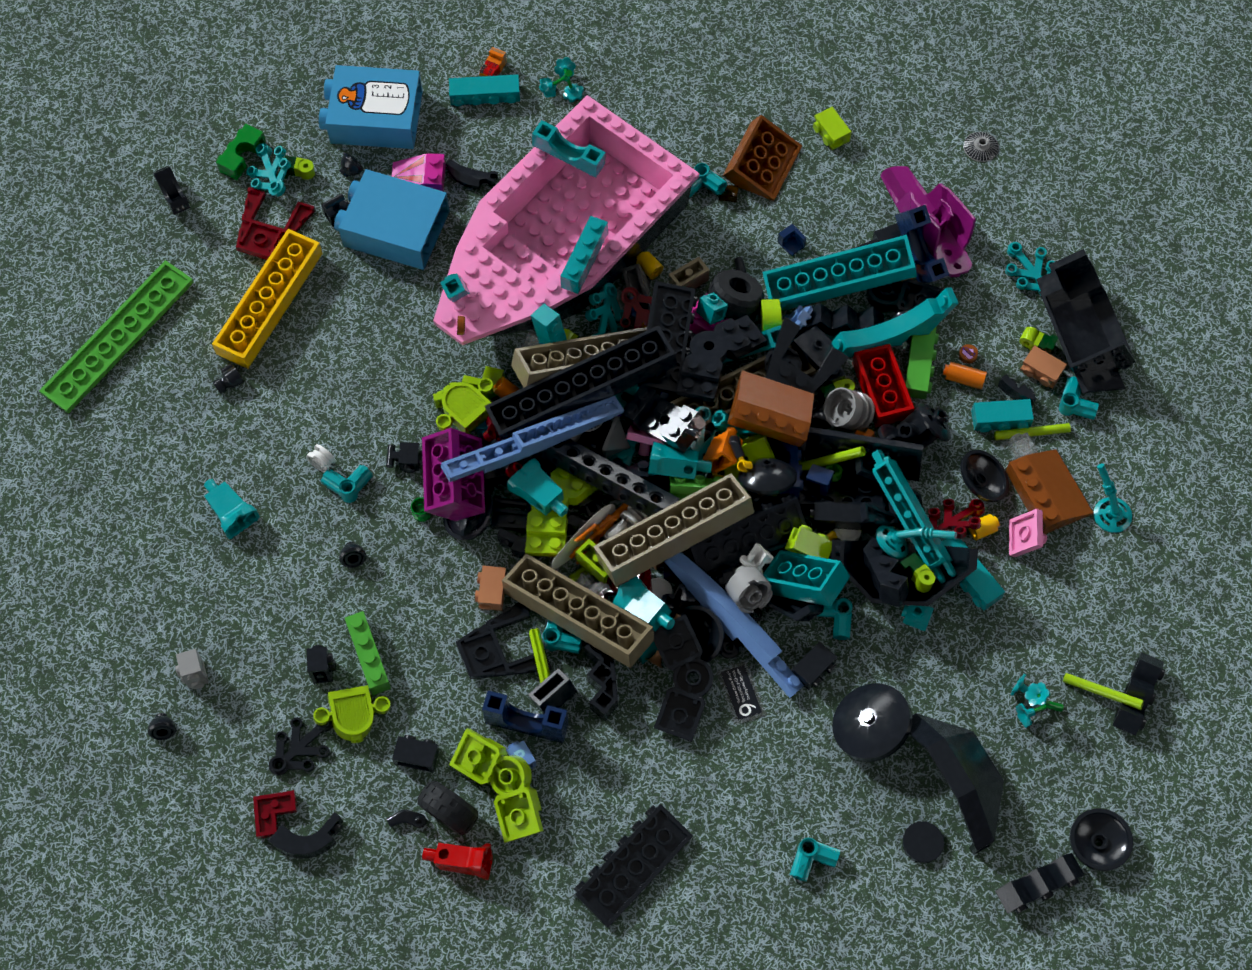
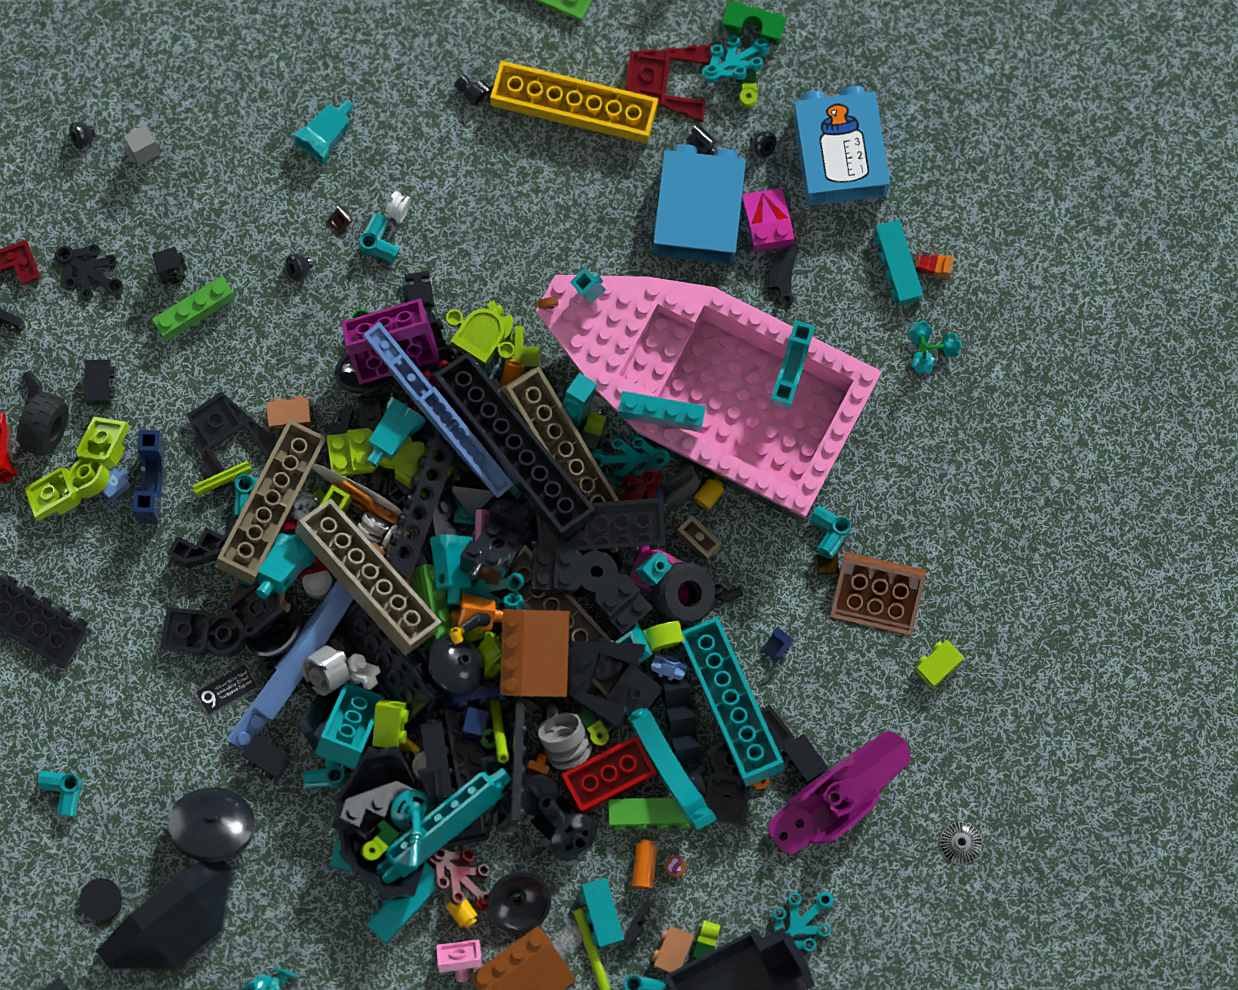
camera: 75 degrees right, 10 degrees up
(317, 512) = (340, 219): none -> dark brown slope
(351, 712) = (127, 309): lime piece -> none
(553, 691) = (184, 499): black brick -> none
(679, 600) = (305, 601): black hips -> none
(911, 224) = (801, 774): dark blue arch -> none

